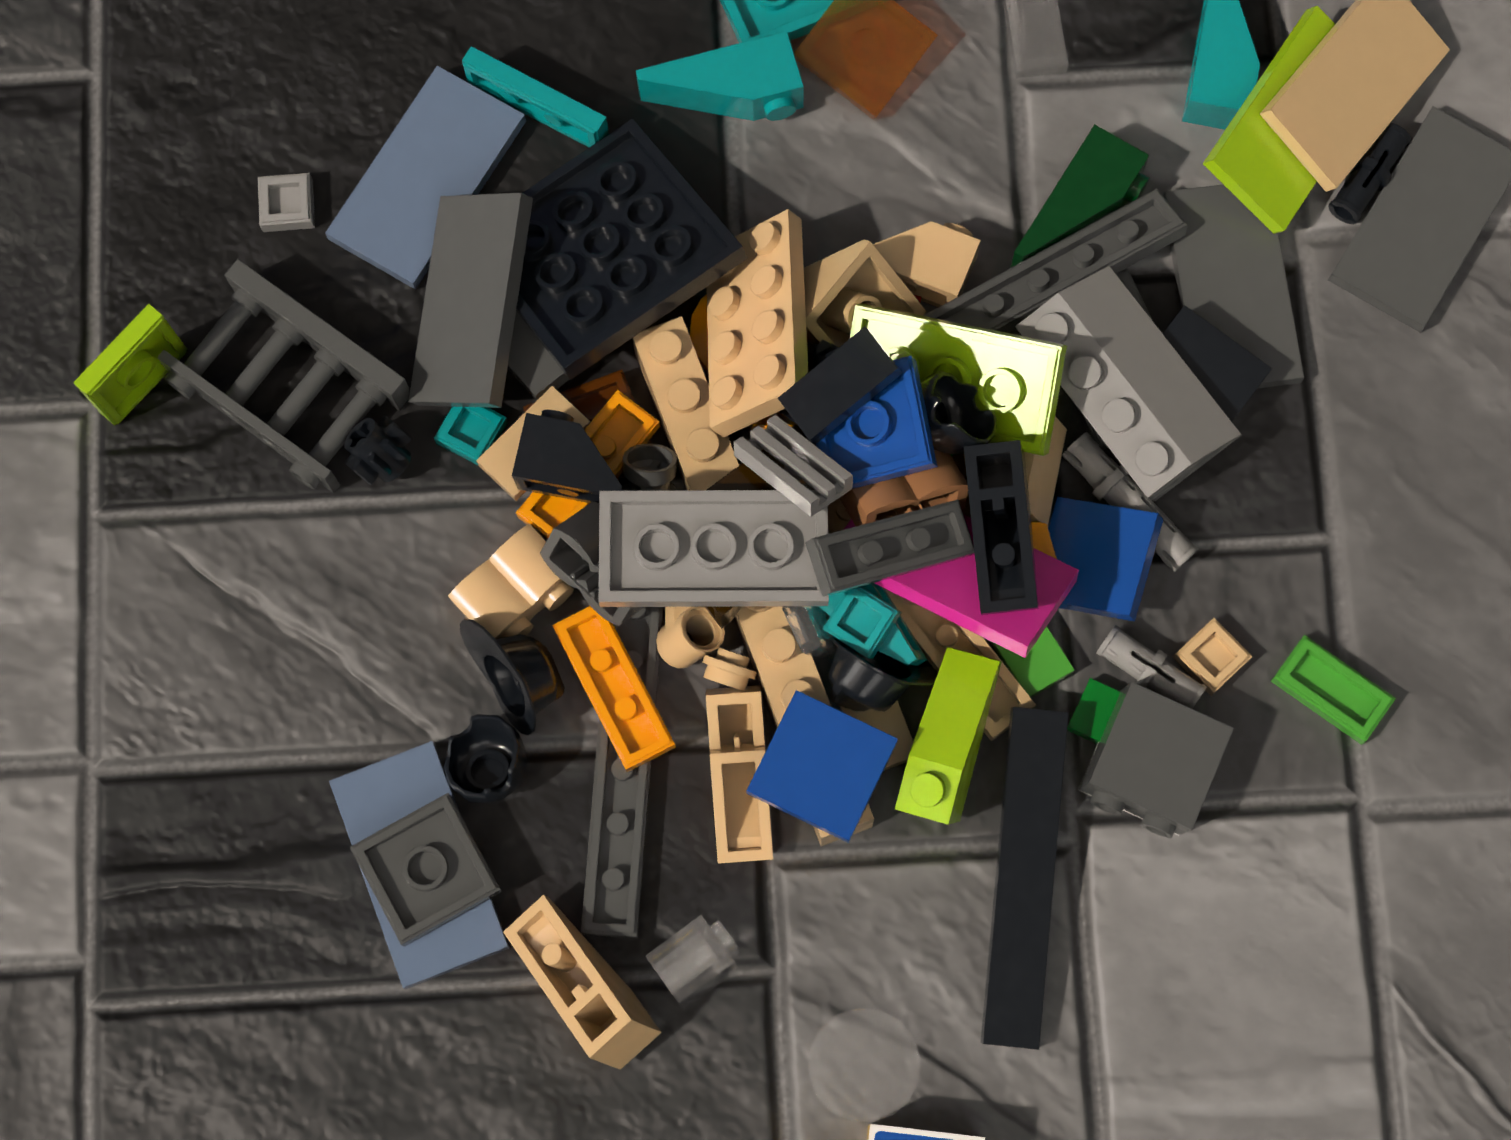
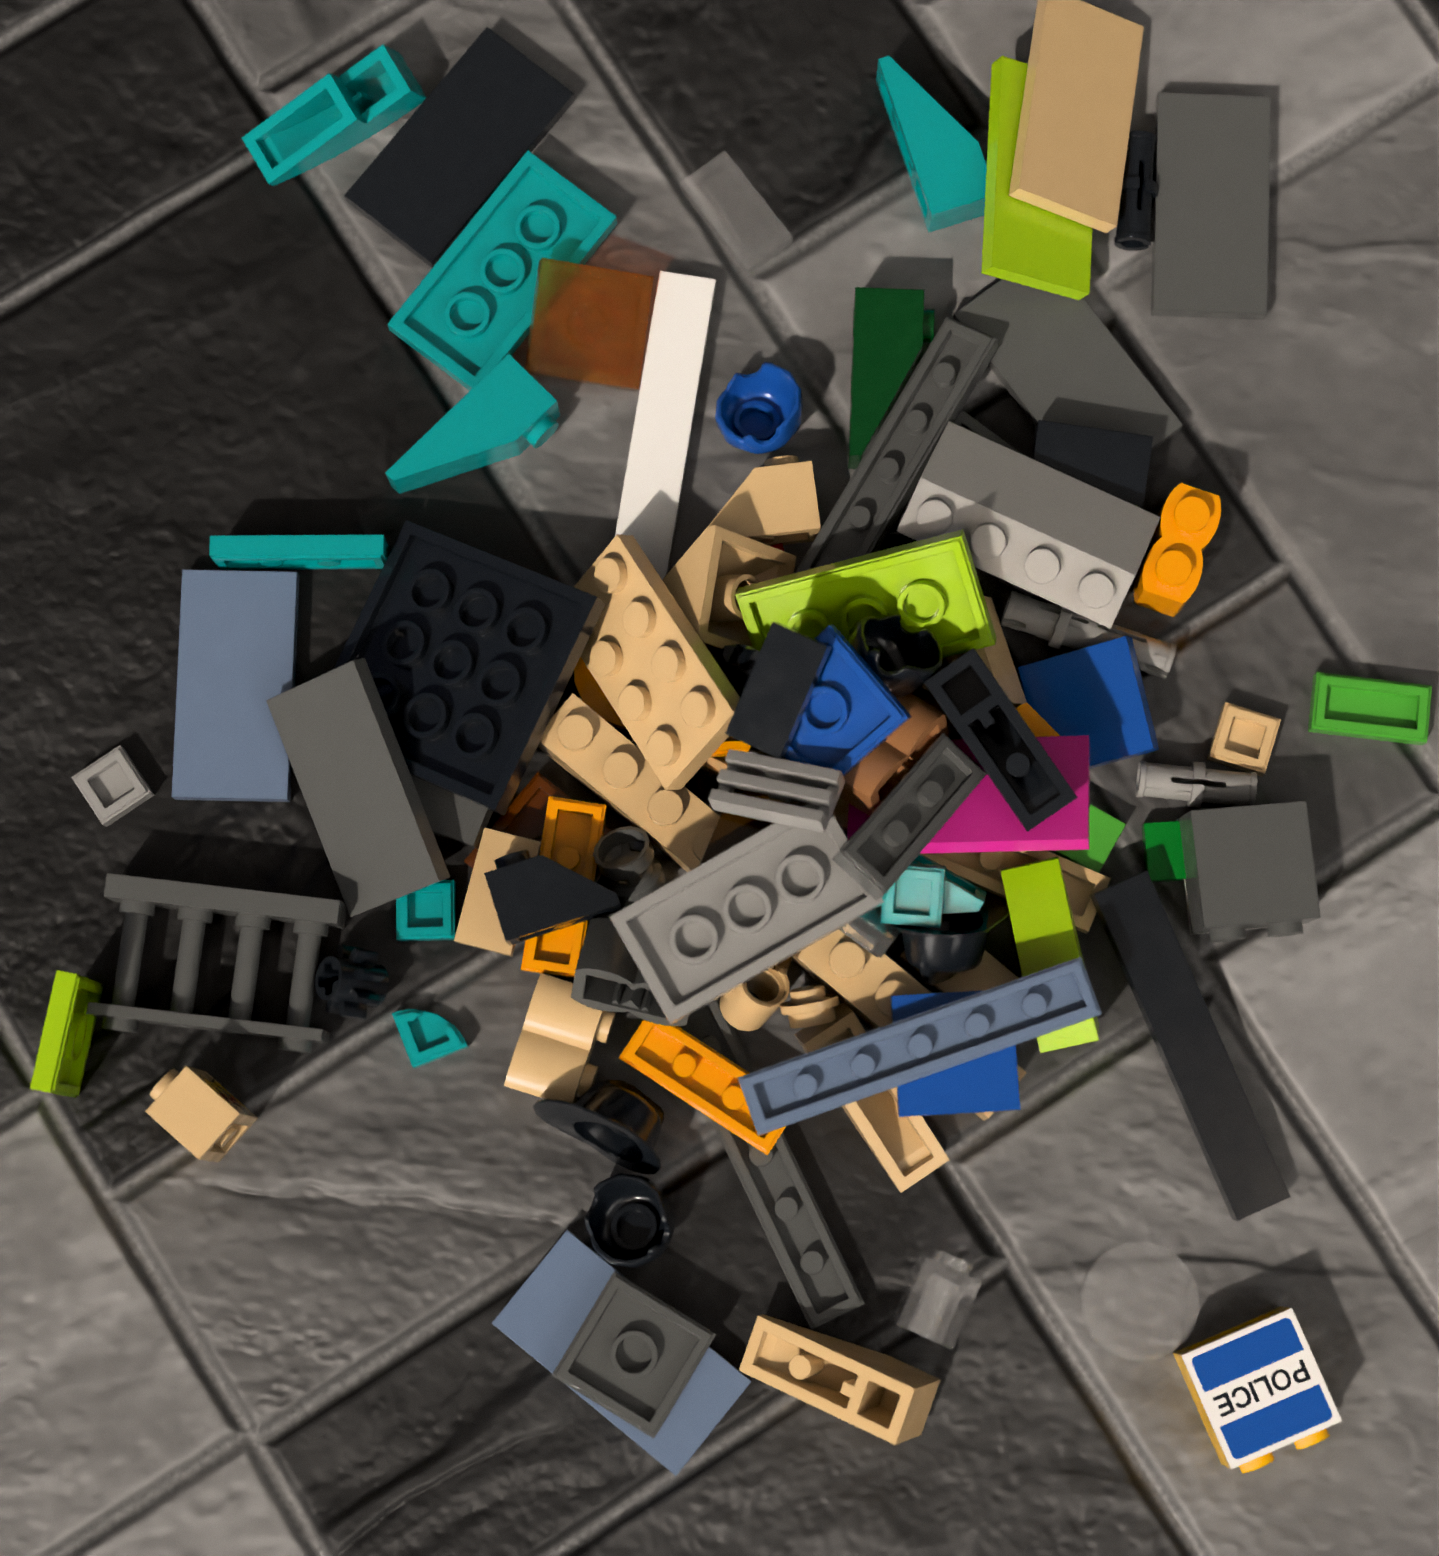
camera: 30 degrees left, 5 degrees up
(197, 483) = (199, 1113): none -> tan brick
(413, 528) = (427, 1036): none -> teal tile
(795, 741) = (919, 1046): none -> sand blue tile
(887, 148) = (665, 414): none -> white tile
(963, 182) = (760, 409): none -> blue hair
(1235, 475) = (1176, 558): none -> light orange brick

